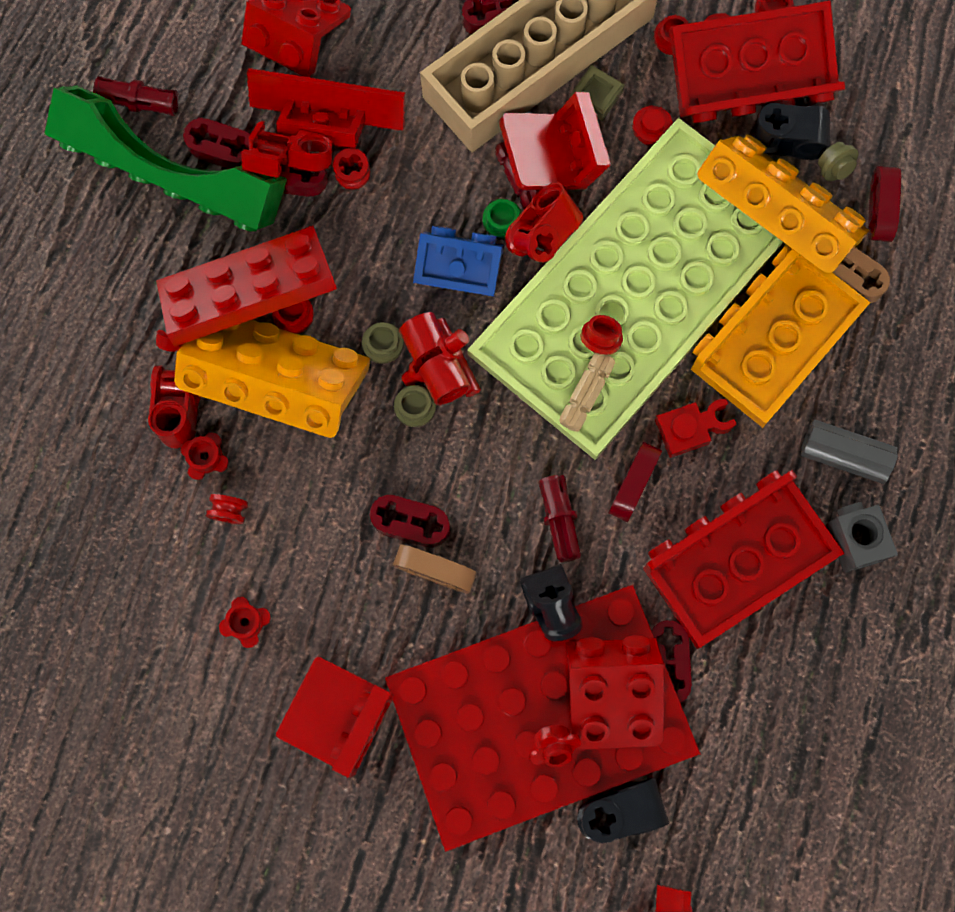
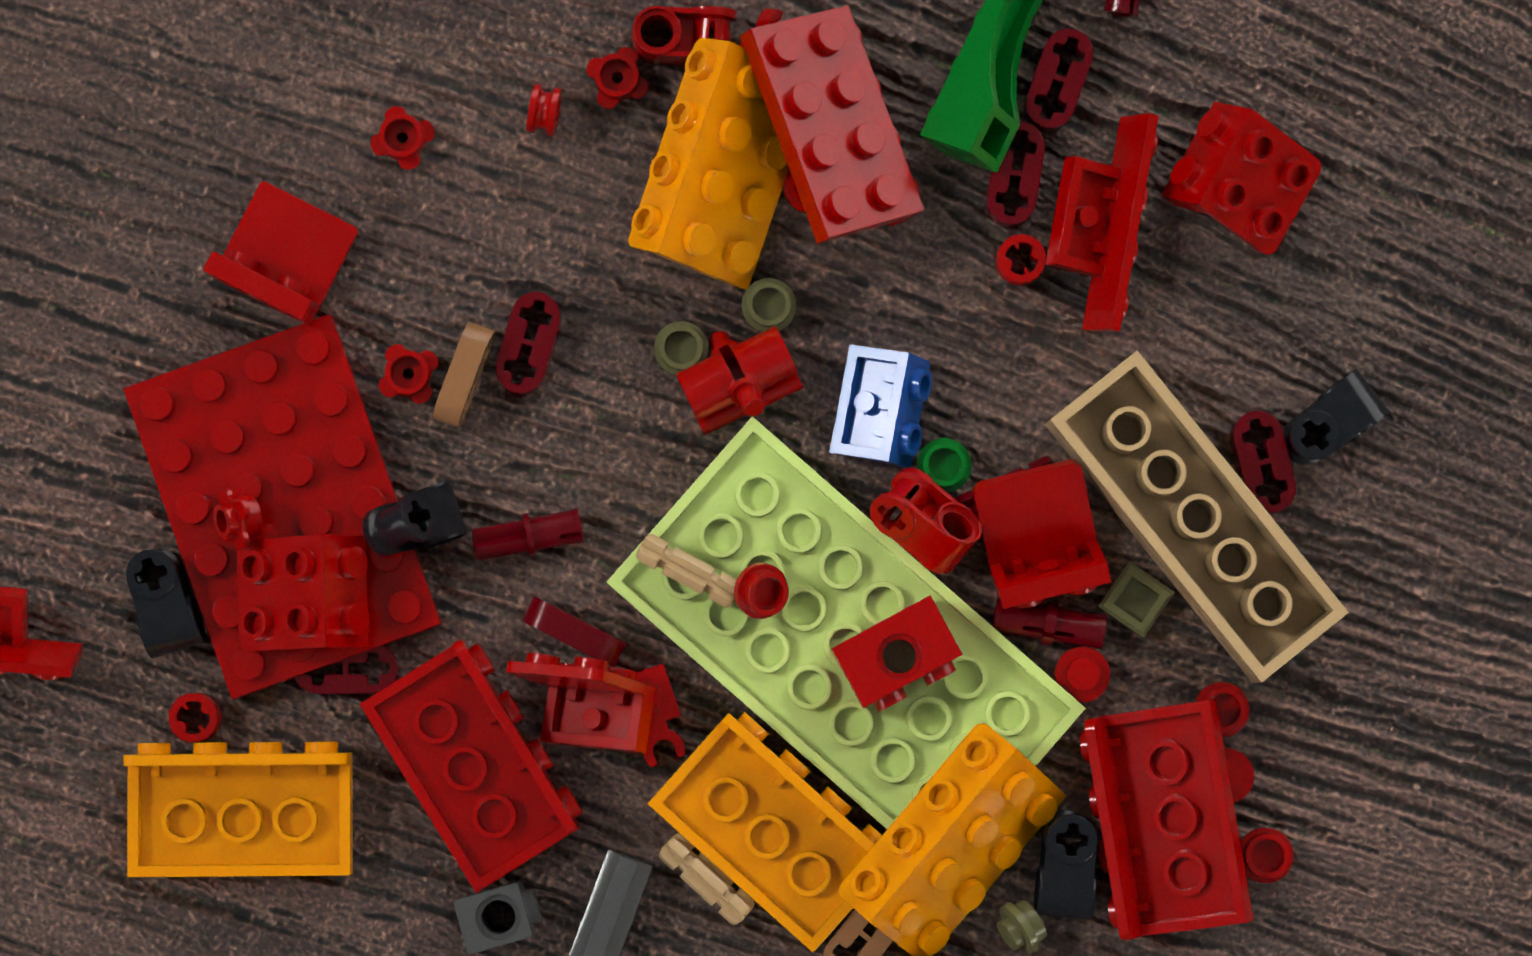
camera: 85 degrees right, 10 degrees up
(270, 149) = (1035, 153): red piece -> none
(426, 604) = (397, 362): none -> red plate
(618, 145) = (1051, 624): none -> dark red pin
(647, 261) = (917, 625): none -> red brick
(699, 462) = (590, 703): none -> red bracket
(722, 798) = (182, 728): none -> red bush
(791, 748) = (239, 811): none -> light orange bracket
(818, 383) = (706, 879): none -> tan axle

